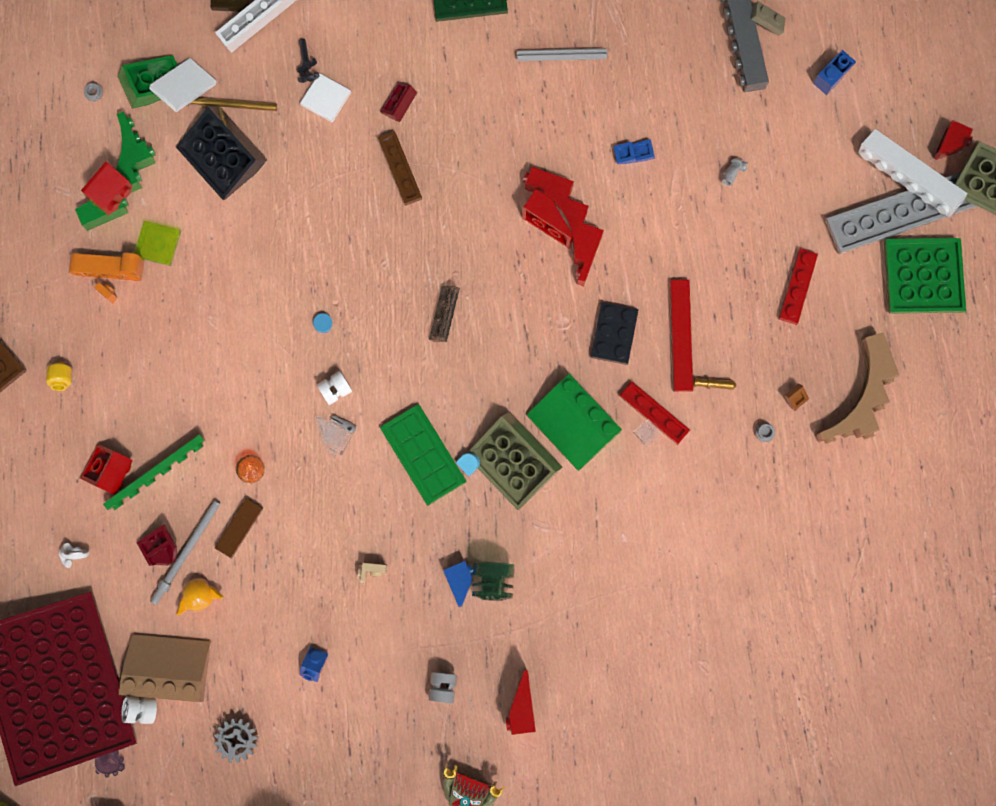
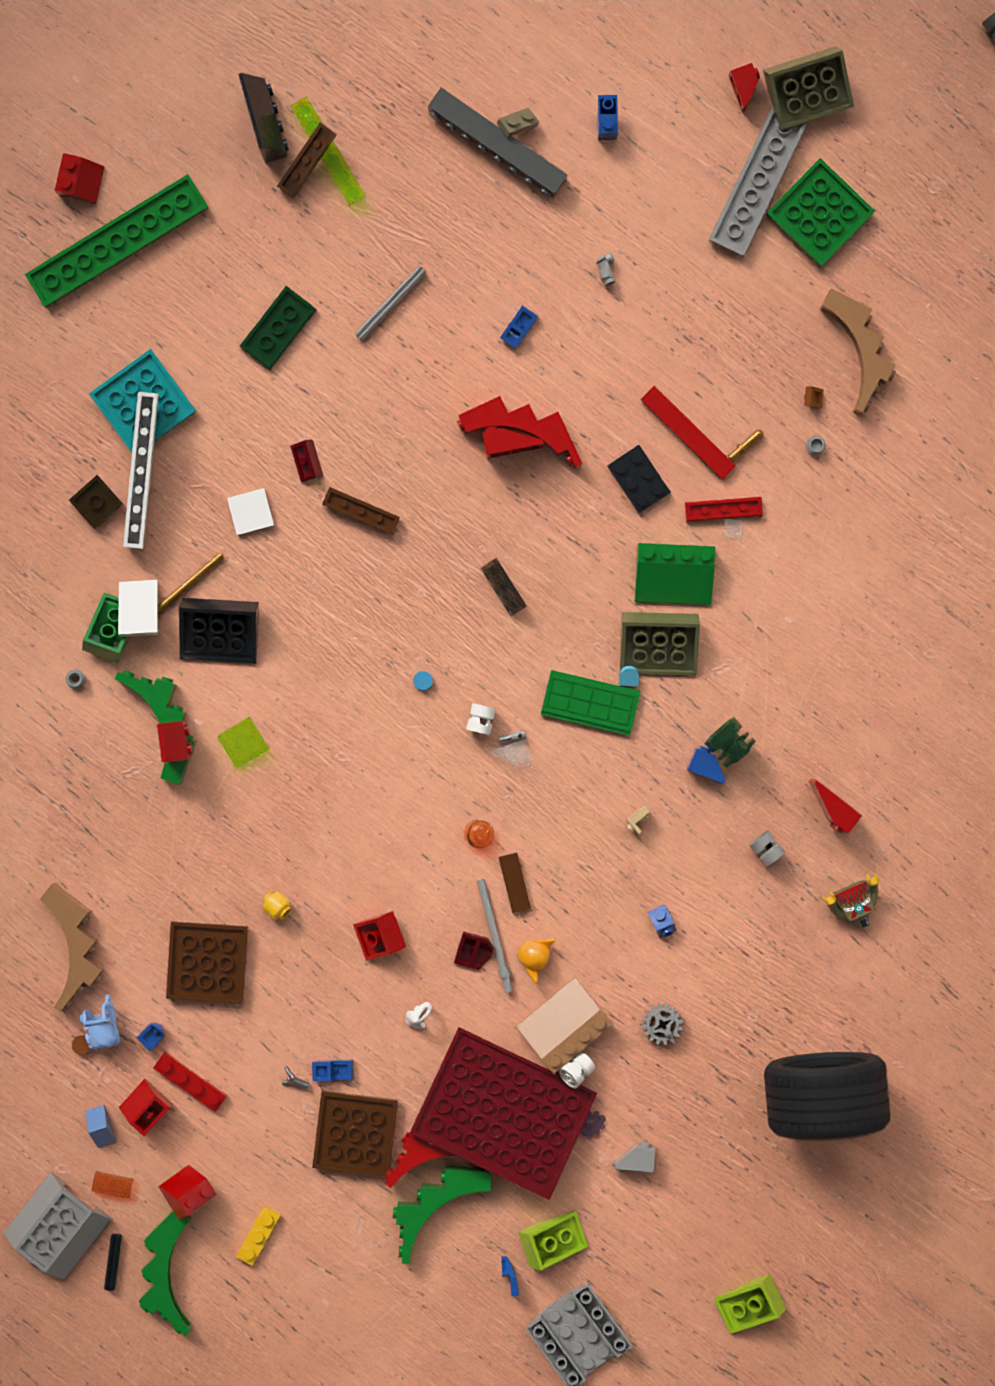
camera: 45 degrees left, 10 degrees up
(106, 291) = (245, 813): orange plate -> none
(127, 267) = (226, 795): orange beam -> none
(149, 477) = (416, 912): green plate -> none
(306, 64) = (210, 500): black piece -> none
(798, 286) = (736, 311): red plate -> none
(912, 173) = (739, 143): white brick -> none

